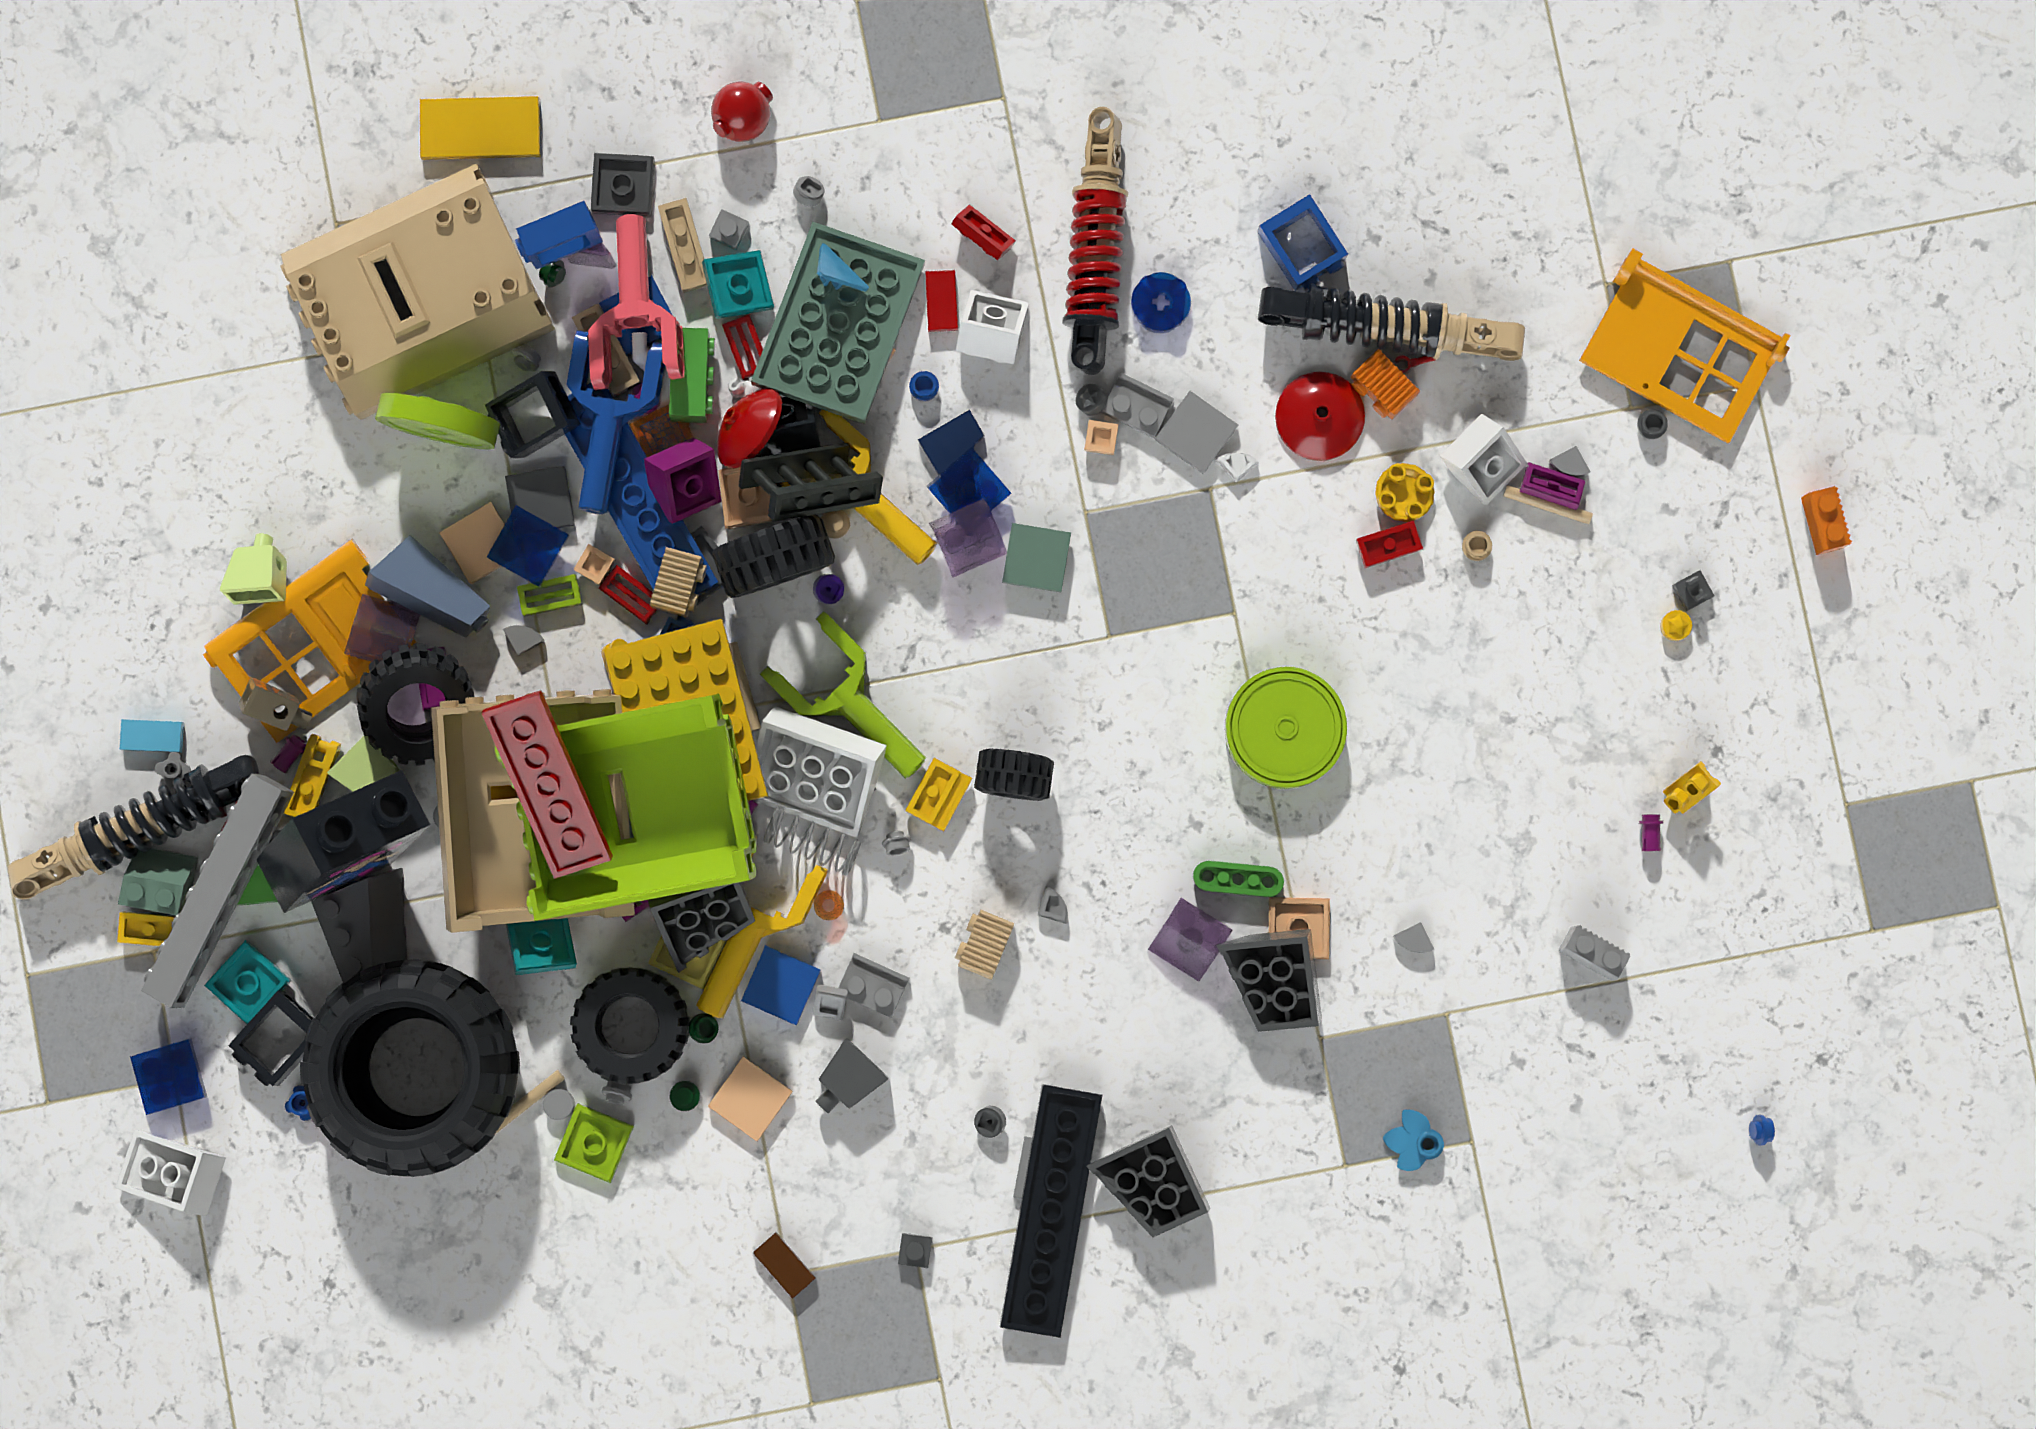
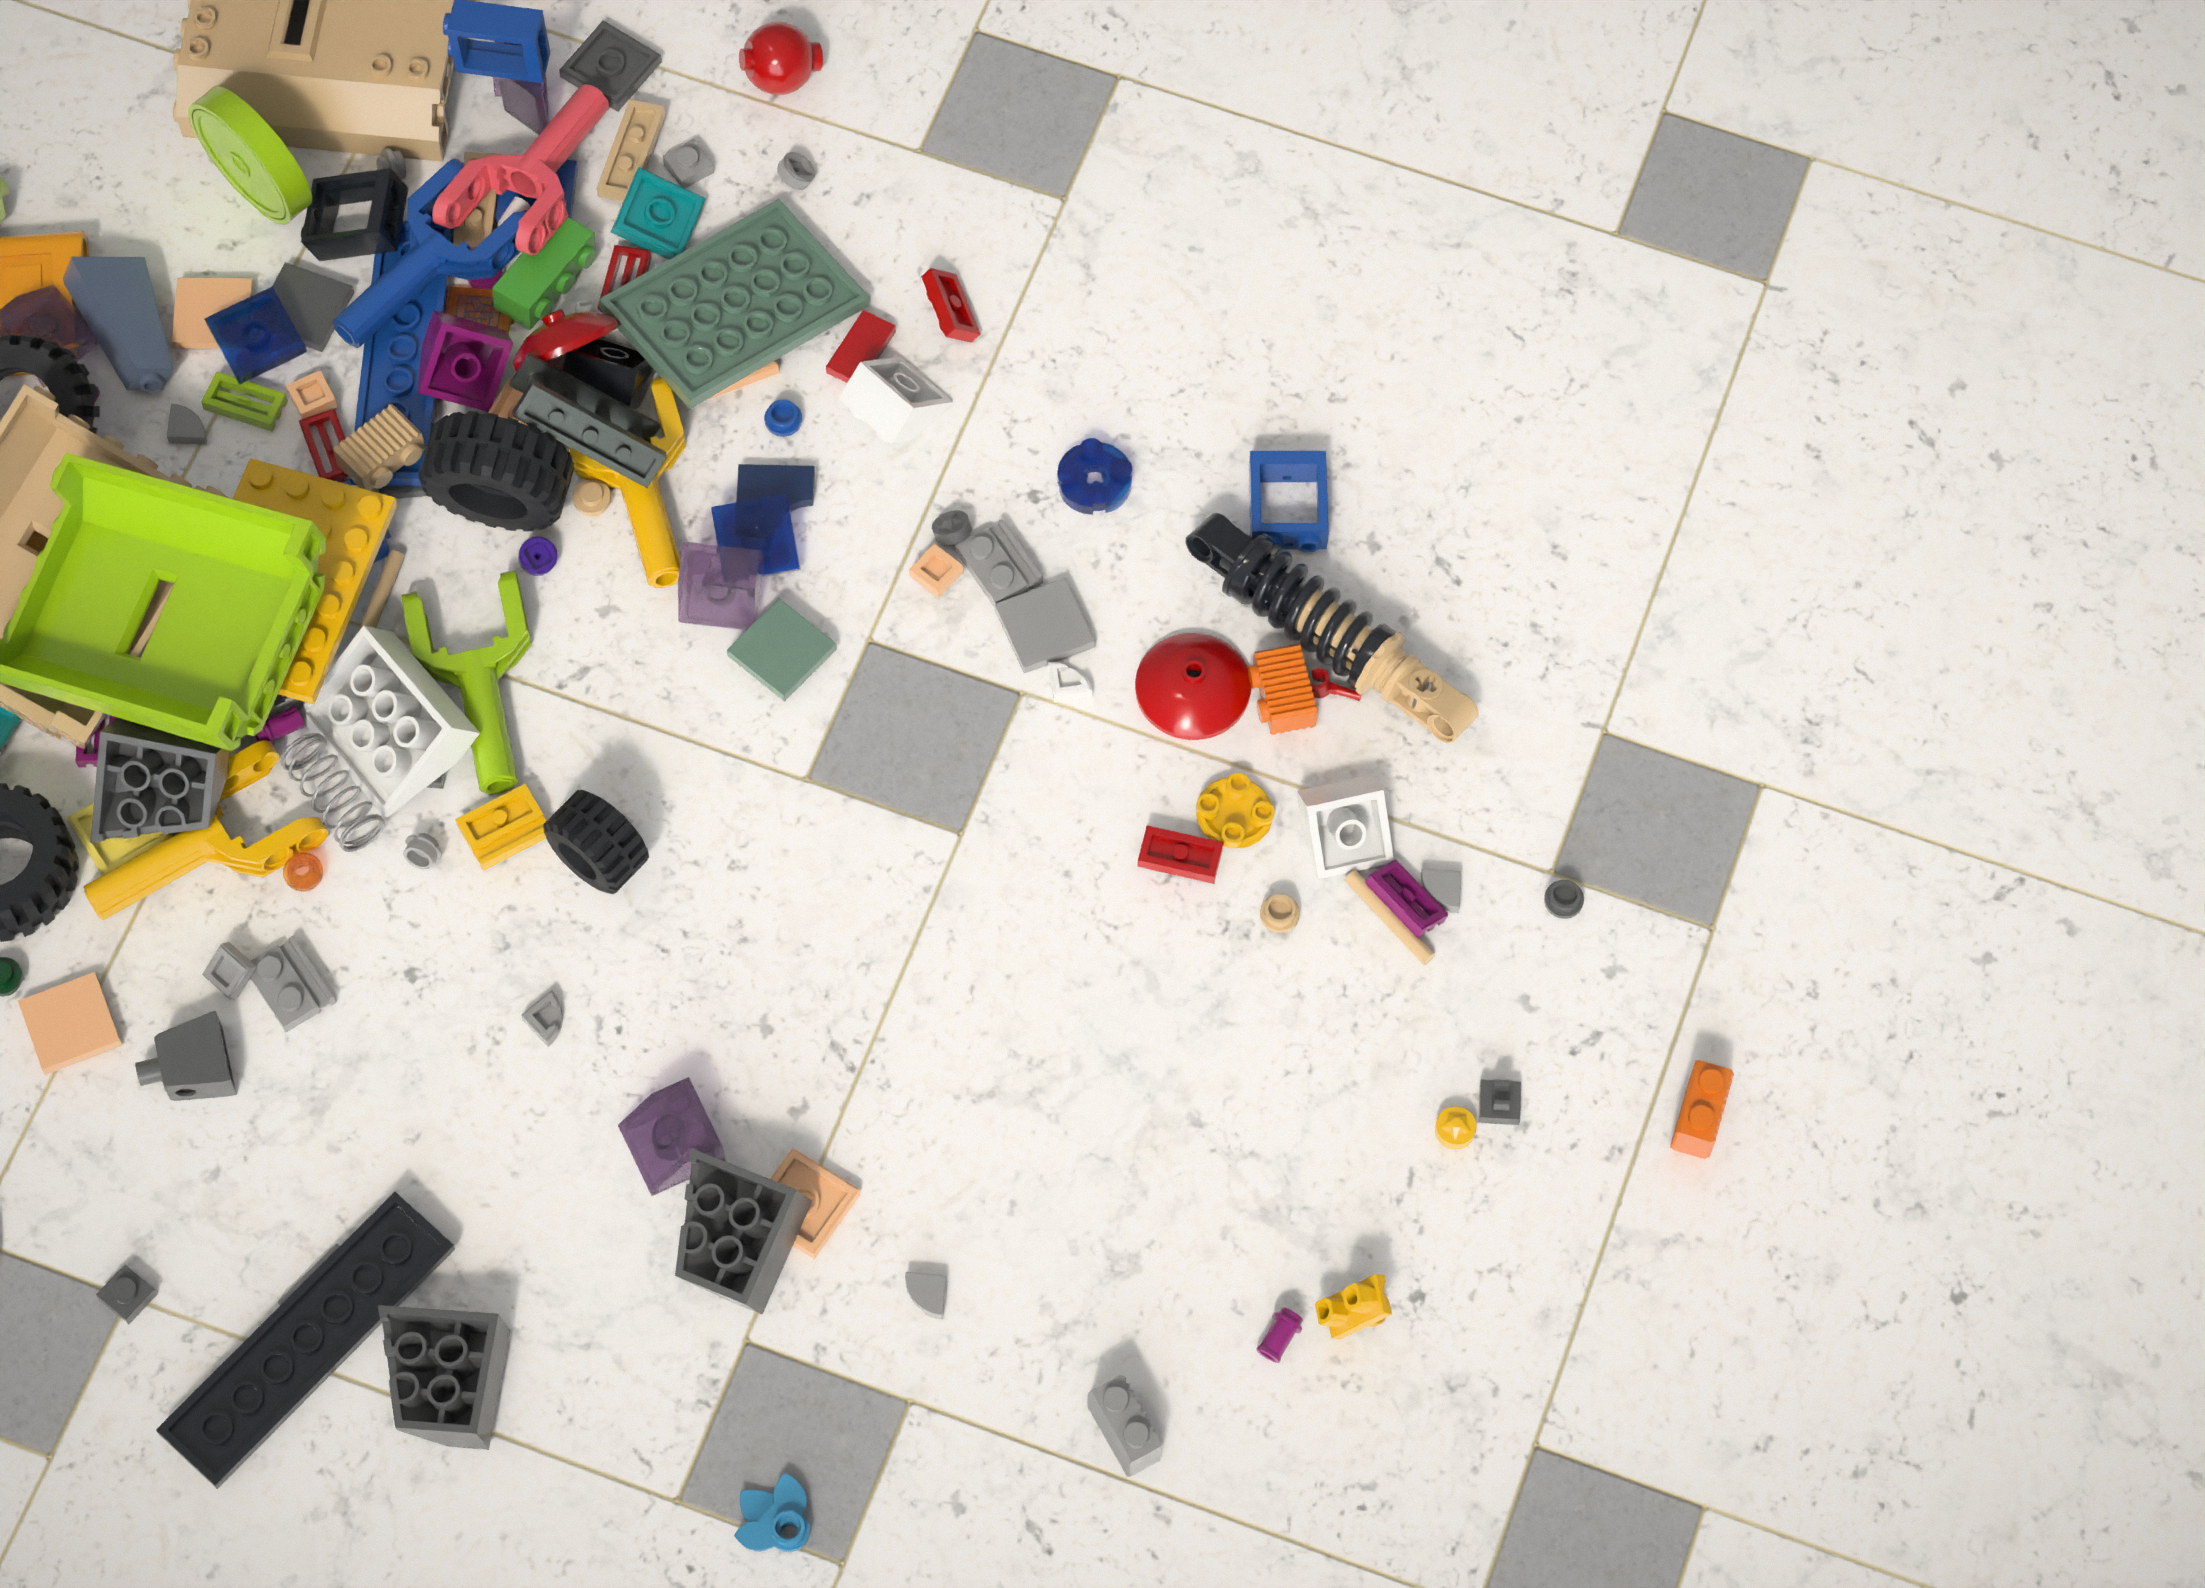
camera: 30 degrees right, 20 degrees down
(547, 784) = (82, 528): plate -> none
(553, 273) = (477, 103): dark green plate -> none
(703, 1028) = (74, 917): dark green plate -> none
(781, 985) = (190, 924): blue tile -> none
(834, 269) = (765, 240): dark azure piece -> none
(985, 944) = (440, 1009): tan brick -> none
(990, 1121) = (310, 1202): dark grey tile -> none
(1096, 219) = (1059, 375): piece -> none
(1252, 876) = (764, 1092): bright green plate -> none
(1285, 727) = (932, 975): lime brick -> none
(1647, 328) = (1621, 799): light orange door -> none

